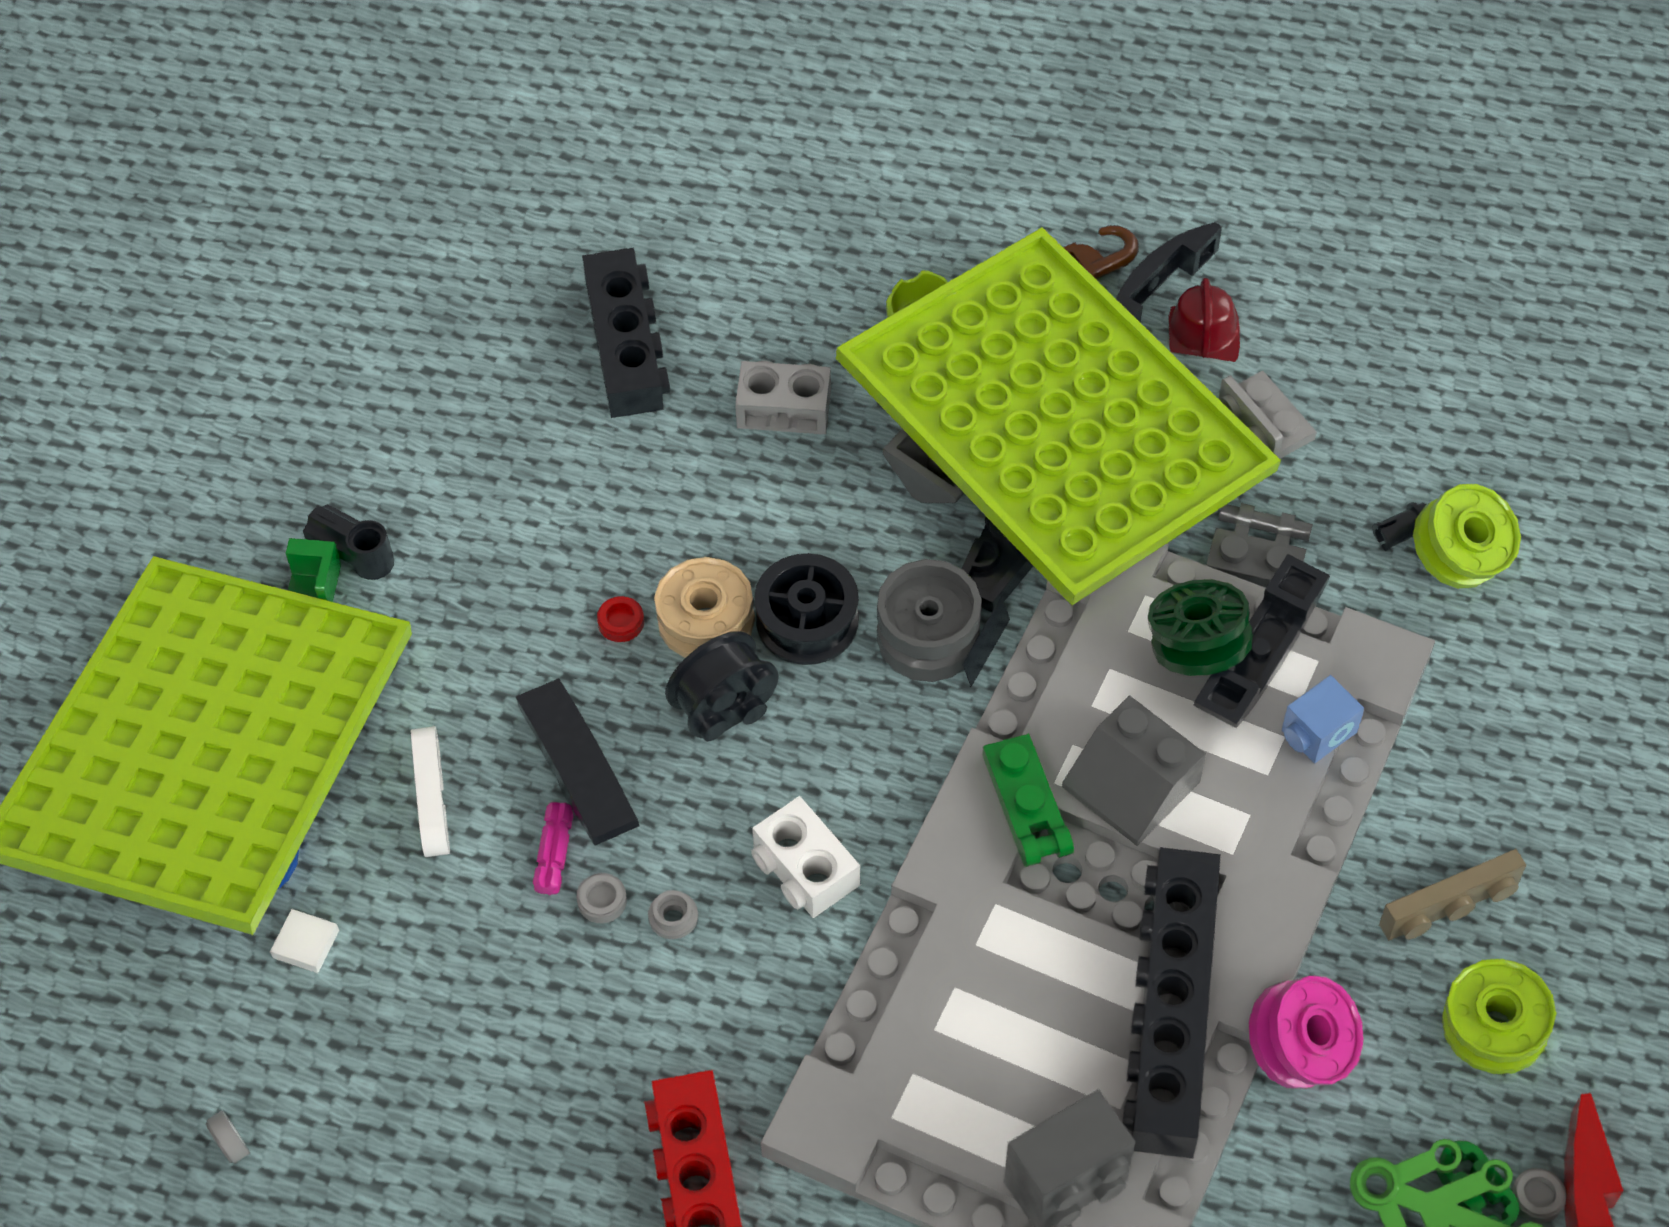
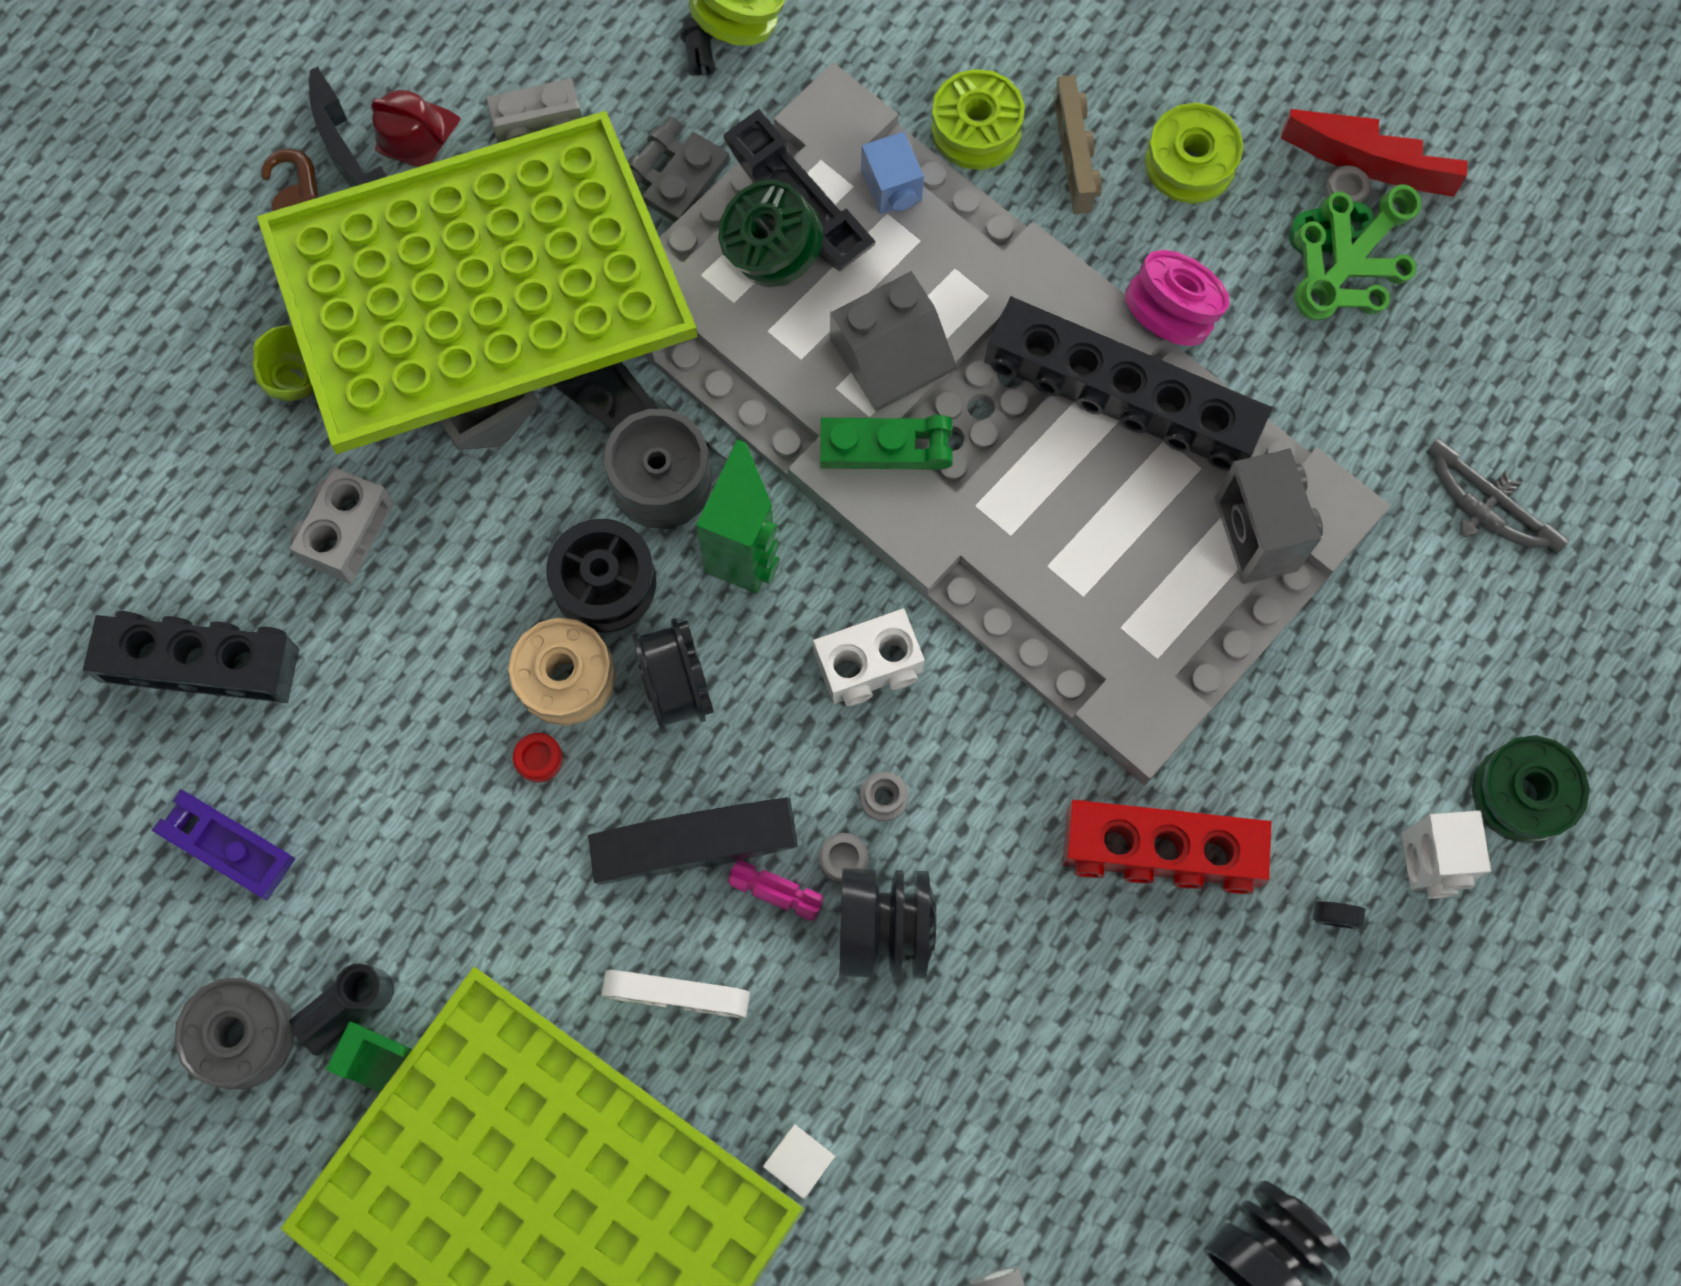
camera: 75 degrees left, 15 degrees up
(306, 469) = (205, 1026): none -> dark grey wheel
(467, 412) = (225, 845): none -> dark purple plate
(538, 933) = (885, 923): none -> black wheel
(890, 689) = (738, 525): none -> green slope
(1444, 770) = (983, 97): none -> lime wheel

